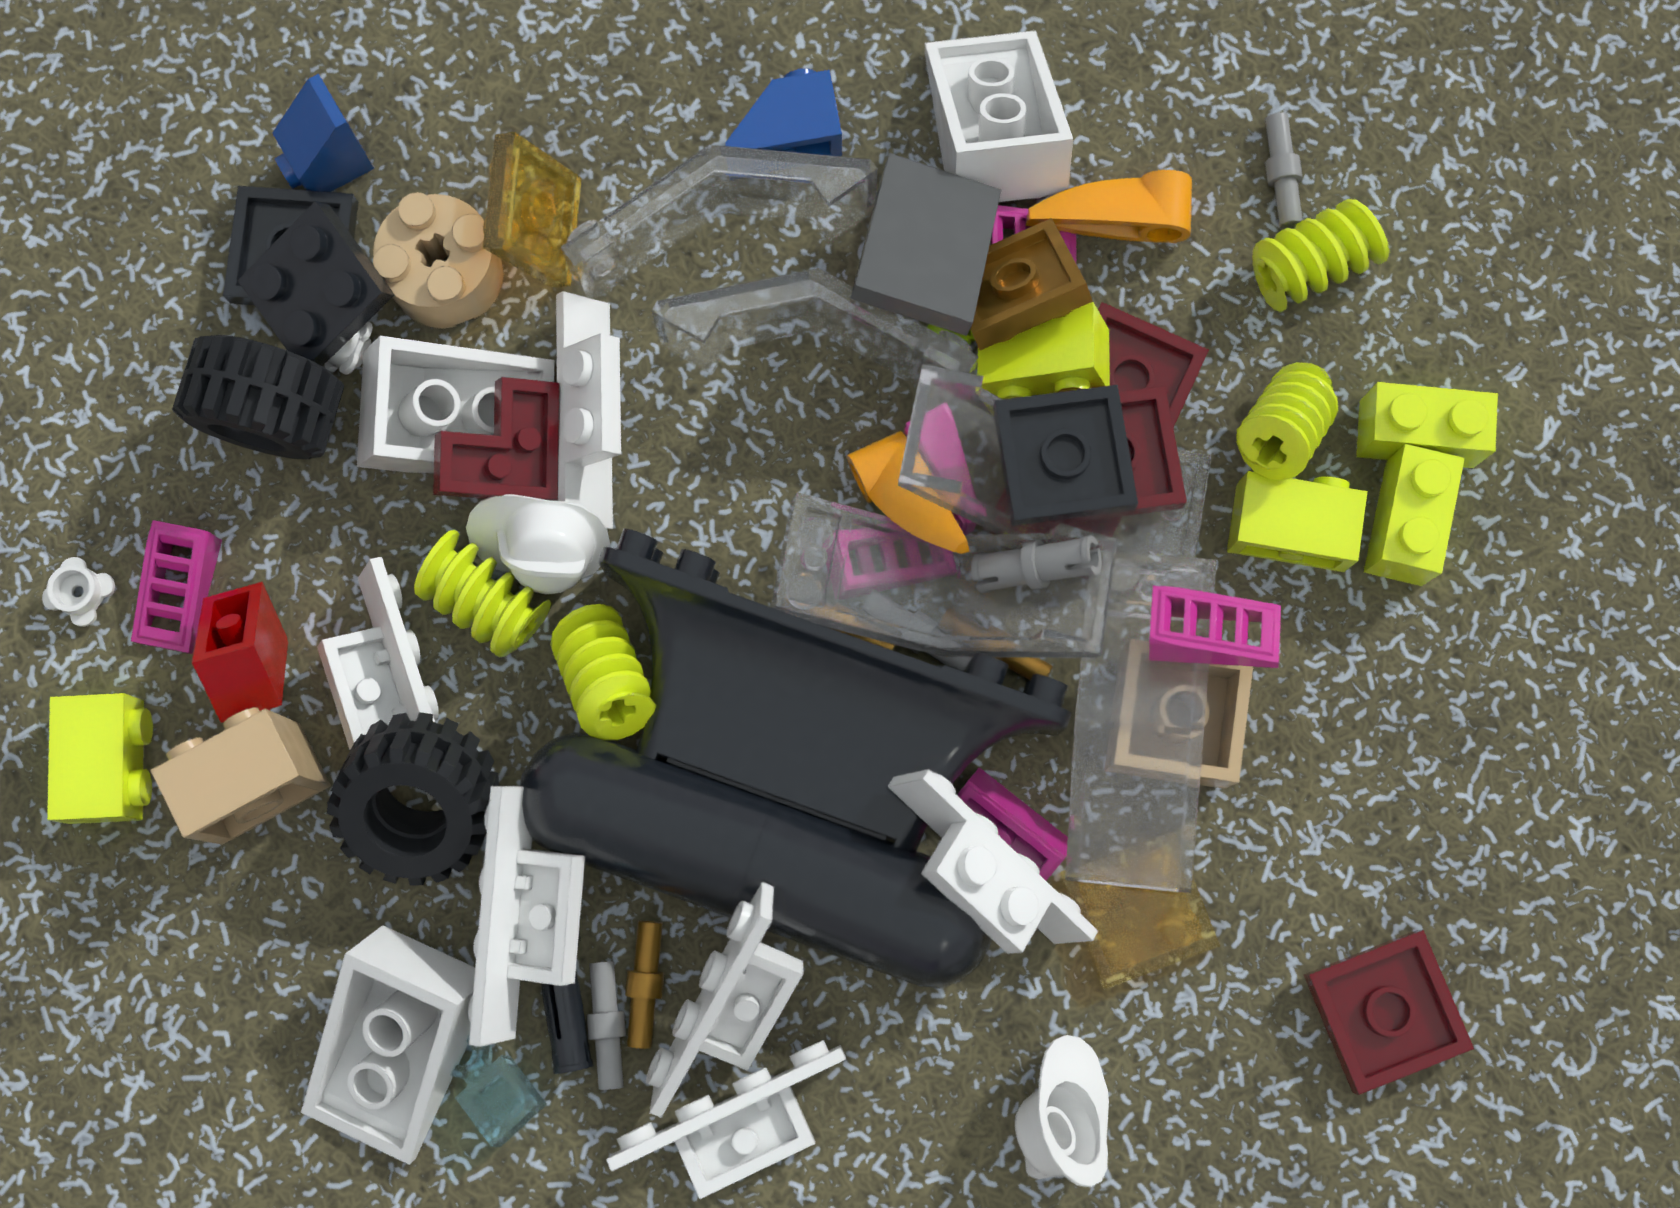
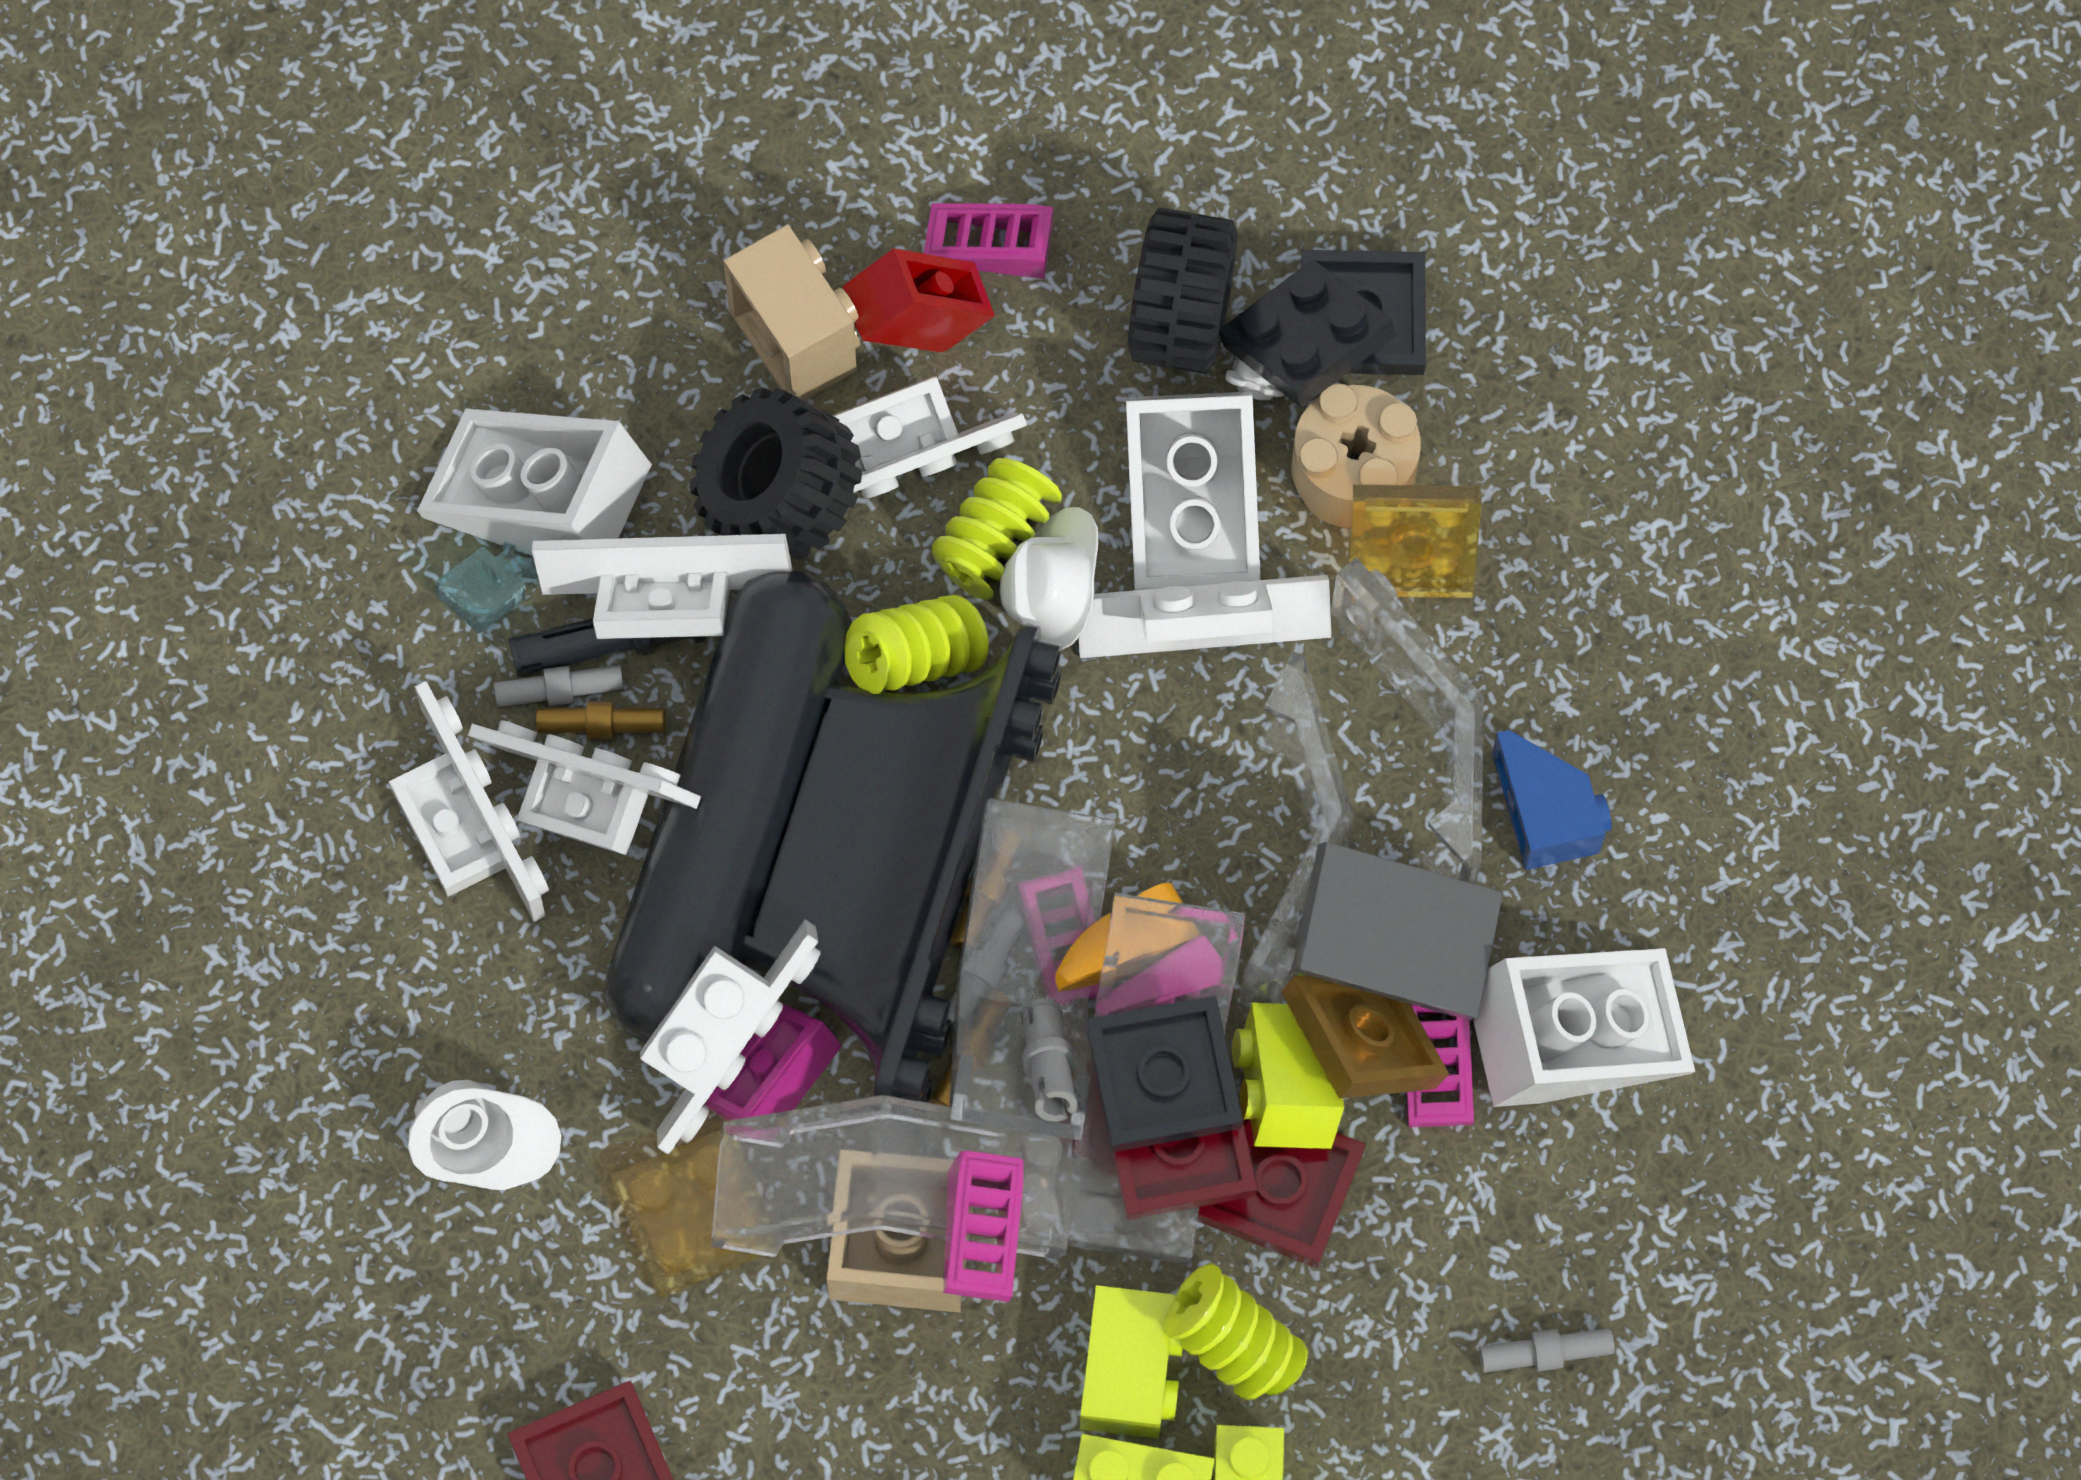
camera: 85 degrees right, 10 degrees down
(61, 587) = (983, 132): white plate -> none
(98, 758) = (808, 183): neon yellow brick -> none
(318, 142) = (1476, 328): blue slope -> none
(515, 459) = (1140, 551): dark red plate -> none
(1123, 209) = (1483, 1165): light orange piece -> none
(1318, 249) = (1441, 1379): neon yellow piece -> none

